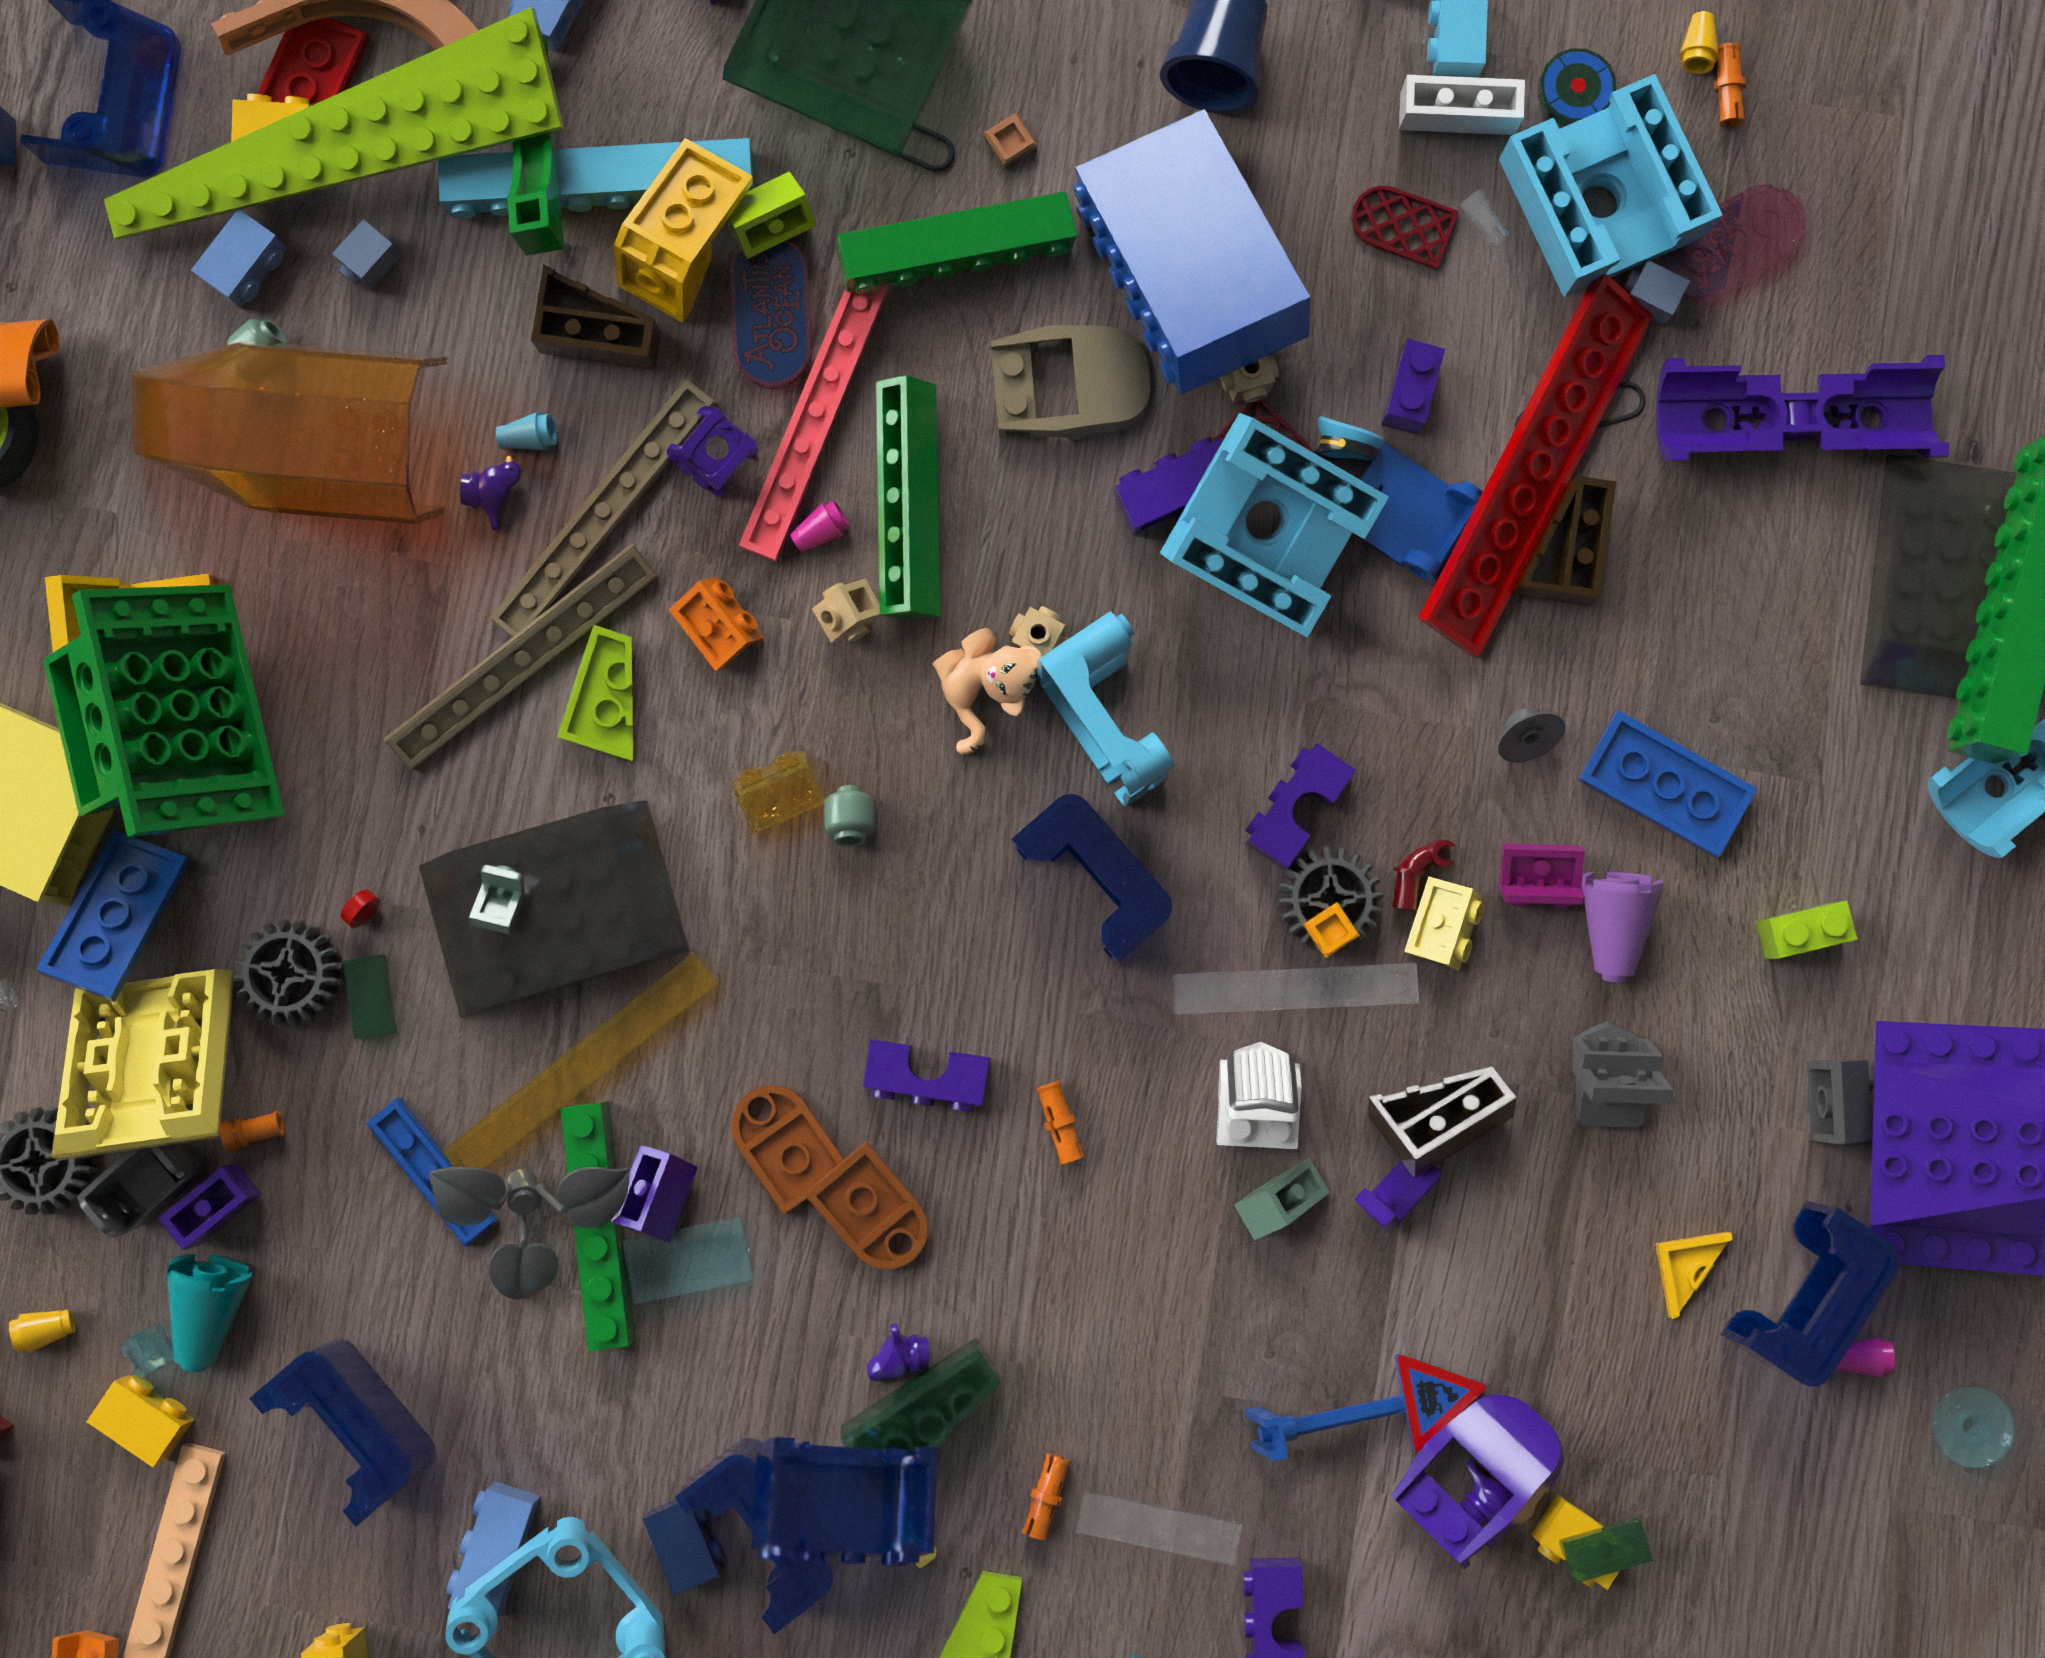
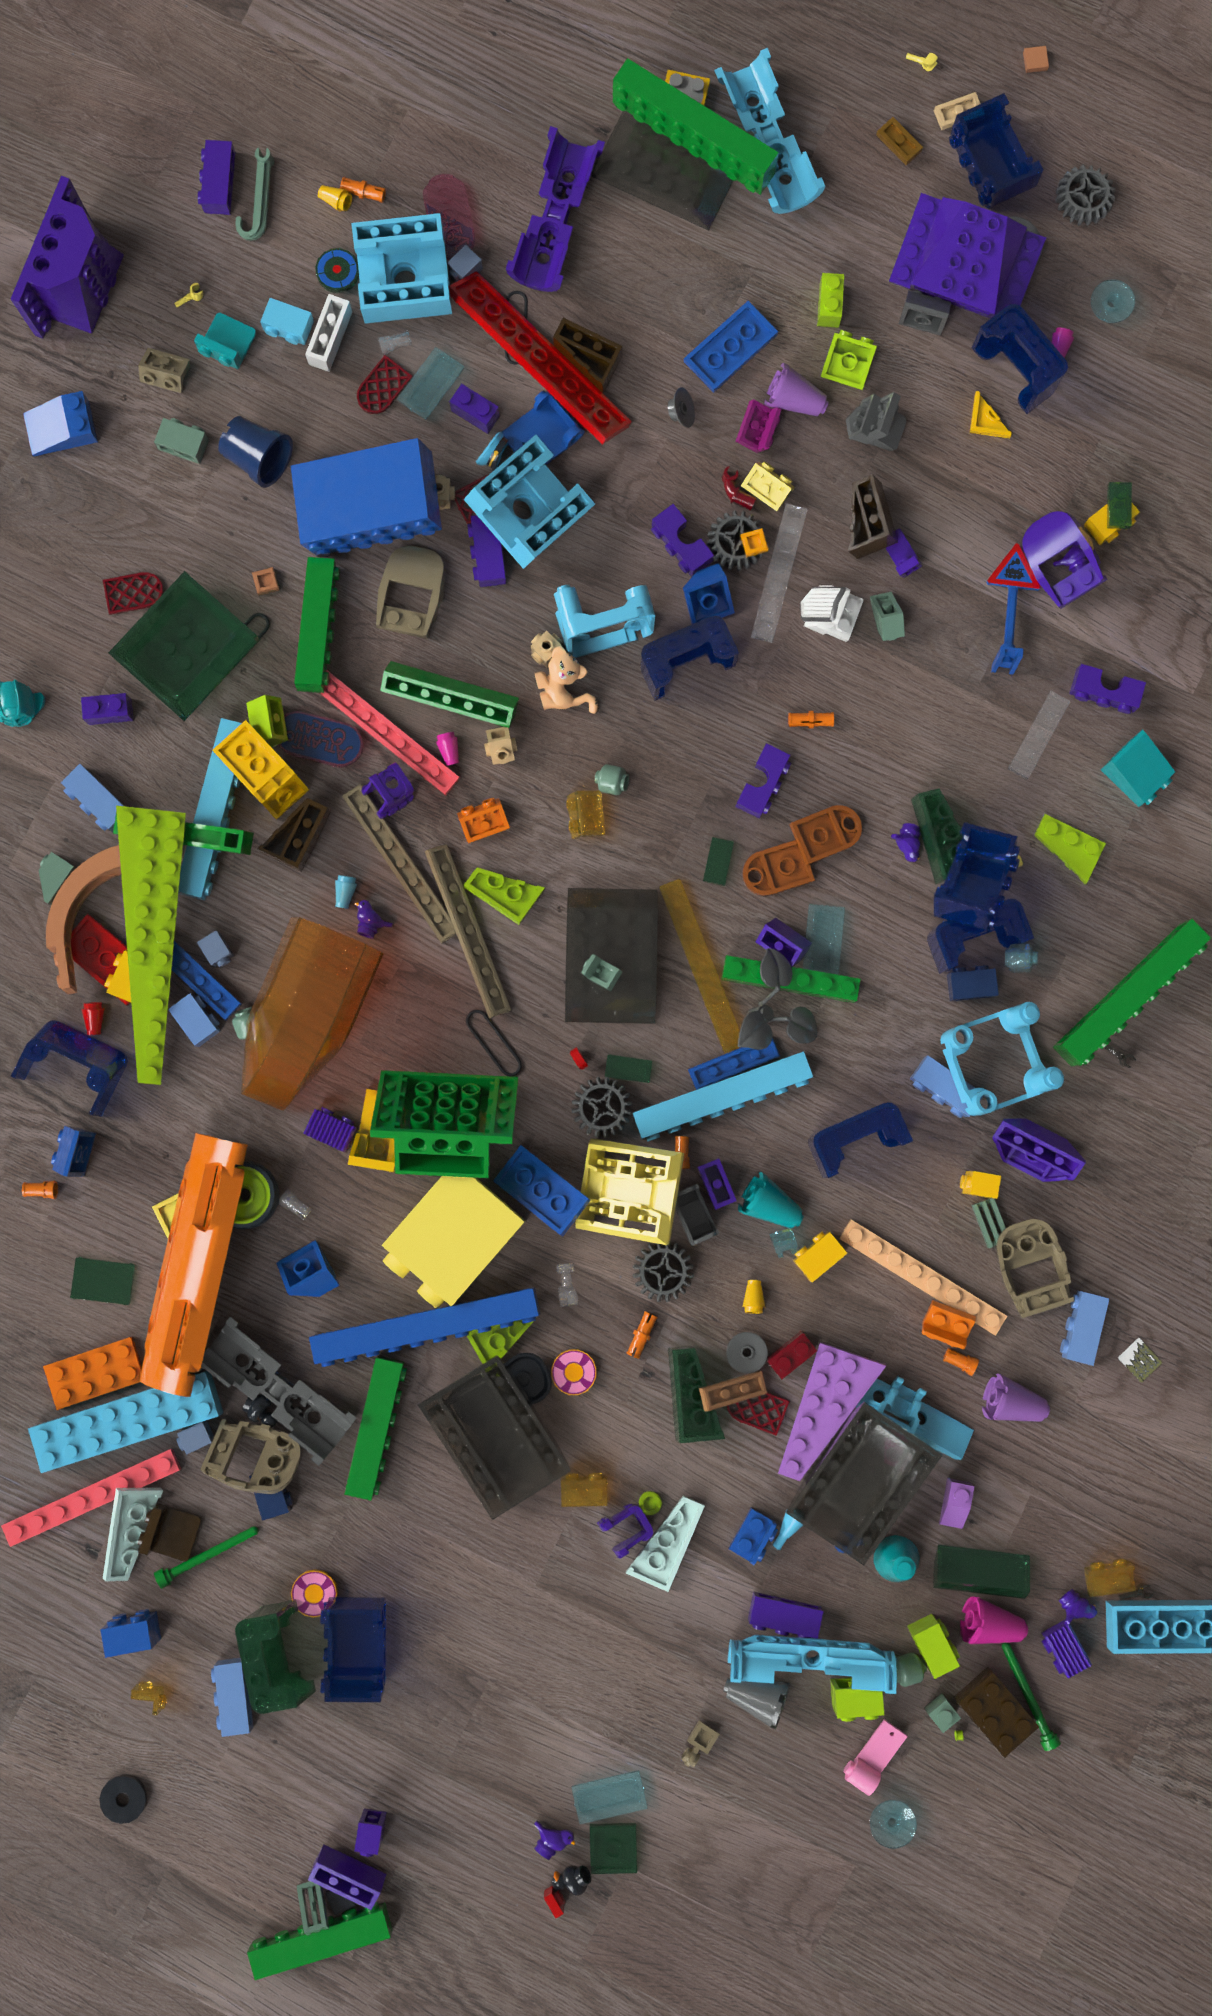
camera: 75 degrees left, 0 degrees up
(121, 537) = (331, 1130): none -> dark purple brick
(198, 96) = (93, 1017): none -> red cone
(307, 251) = (203, 983): none -> blue plate
(320, 771) = (500, 1036): none -> black piece
(366, 1170) = (722, 1095): none -> medium azure brick
(746, 1612) = (1020, 958): none -> clear light blue head
(767, 1039) = (718, 861): none -> clear green tile
(1046, 1496) = (1005, 787): orange pin -> none
(1217, 878) = (708, 594): none -> blue slope
(1434, 301) = (430, 383): none -> clear light blue piece
(1711, 994) = (849, 360): none -> lime plate

